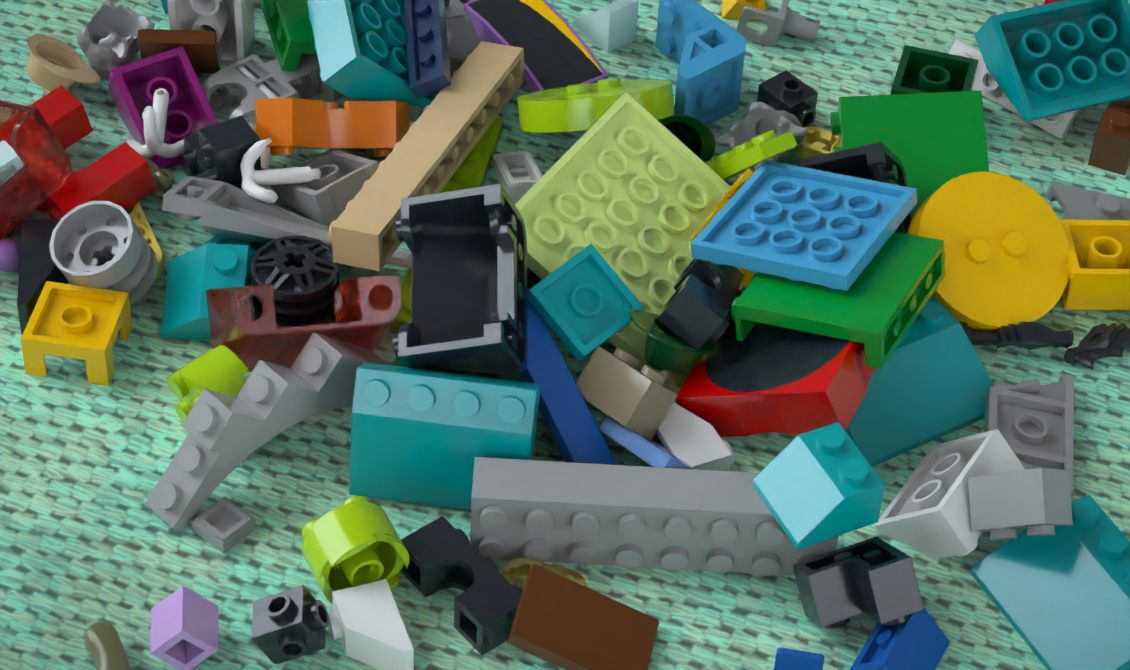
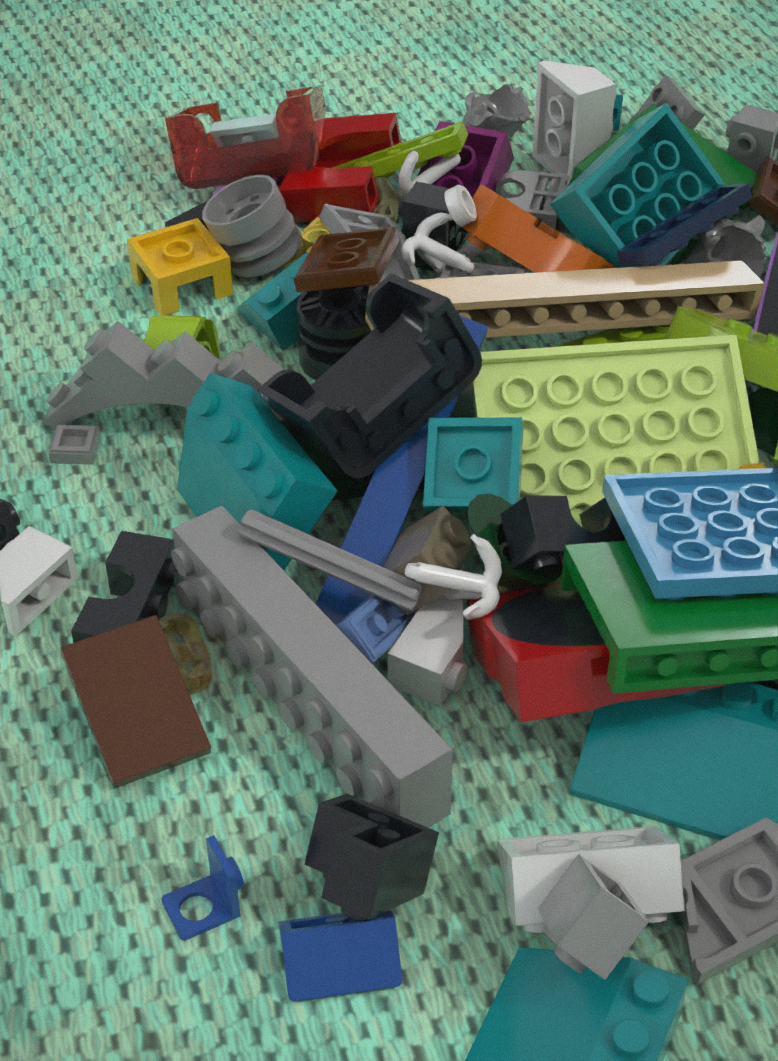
camera: 55 degrees right, 0 degrees up
(56, 64) = (434, 102): tan piece -> none
(121, 113) = (443, 143): none -> lime plate
(199, 46) = (523, 141): reddish brown tile -> none
(266, 125) = (460, 205): none -> white tile
(272, 223) = (347, 259): none -> reddish brown tile
(353, 547) = (86, 511): lime brick -> none
(361, 313) = (241, 311): clear red windscreen -> none
(592, 434) = (330, 559): none -> light grey axle
(686, 380) = (465, 584): none -> white piece
(820, 487) = (404, 736): teal slope -> none

